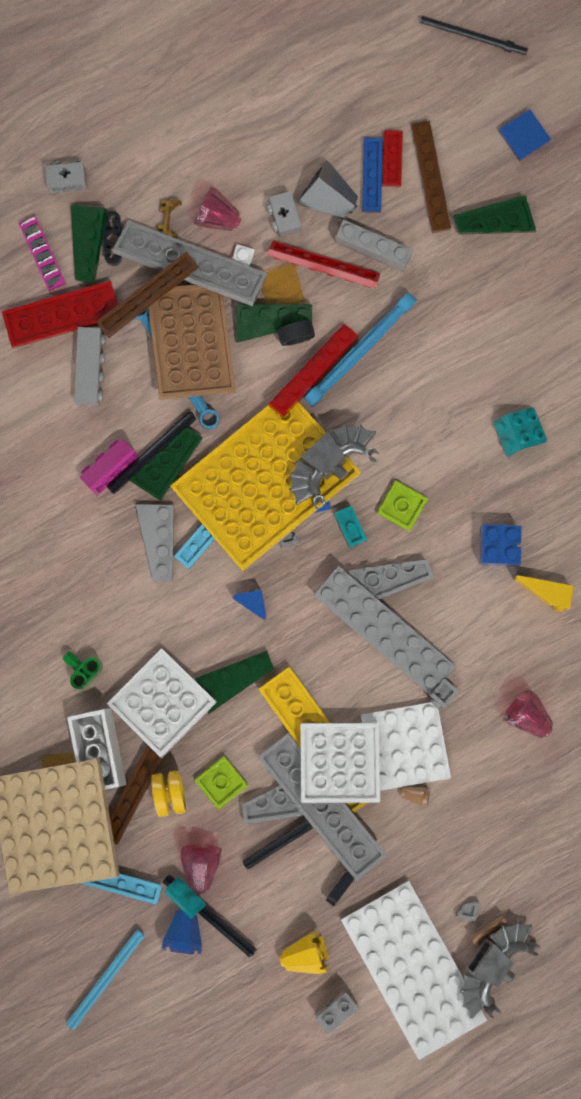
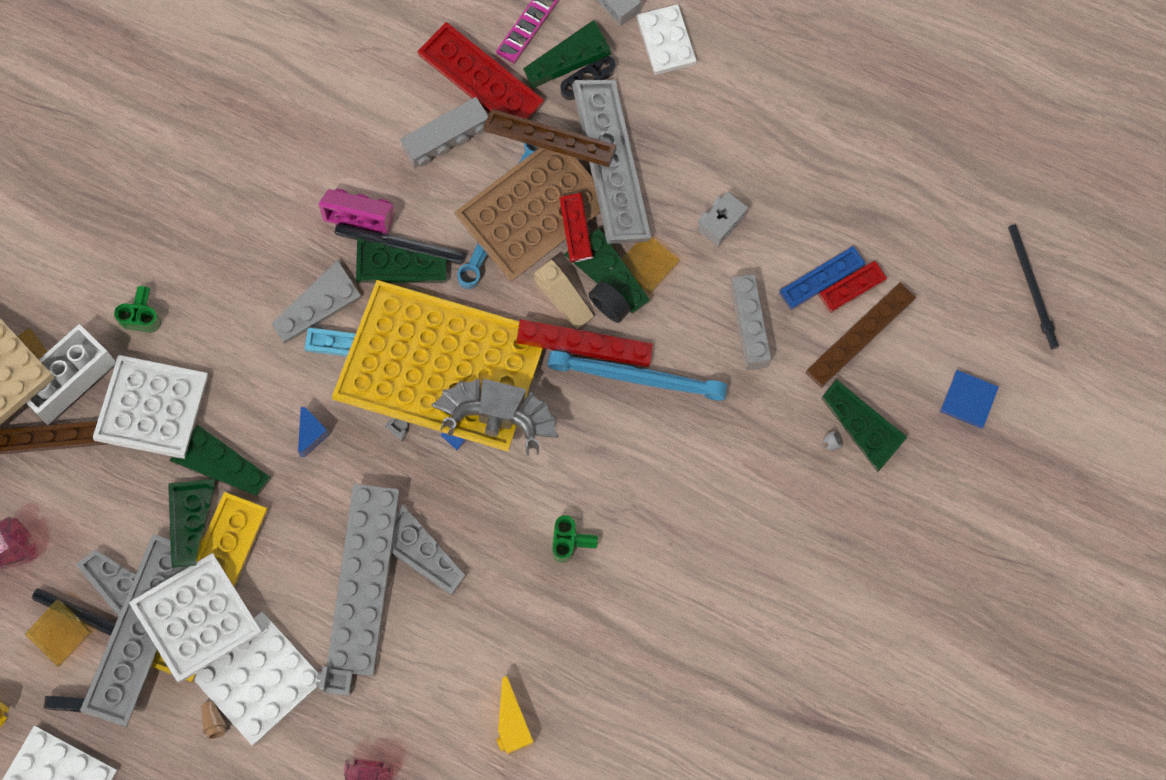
camera: 50 degrees right, 10 degrees down
(120, 163) = (666, 39): none -> white plate
(168, 793) = (61, 469): yellow wheel -> none
(170, 206) = (656, 109): pearl gold piece -> none
(217, 212) = (678, 153): clear pink cone -> none
(221, 782) = (106, 517): lime tile -> none
(225, 320) = (575, 227): none -> red tile
(243, 255) = (655, 207): white plate -> none
(257, 722) = (188, 518): none -> dark green wing
(267, 362) = (562, 294): none -> tan slope
(285, 865) = (58, 633): none -> clear yellow tile
(324, 264) = (699, 287): red plate -> none
(329, 193) = (773, 246): slope -> none
(350, 526) = (449, 479): teal plate -> none
(402, 506) = (505, 518): lime tile -> none
(448, 470) = (570, 539): none -> green beam
(494, 246) = (833, 440): none -> light grey hinge
(500, 544) = (526, 639): blue piece -> none
(520, 431) = (662, 586): teal bracket -> none

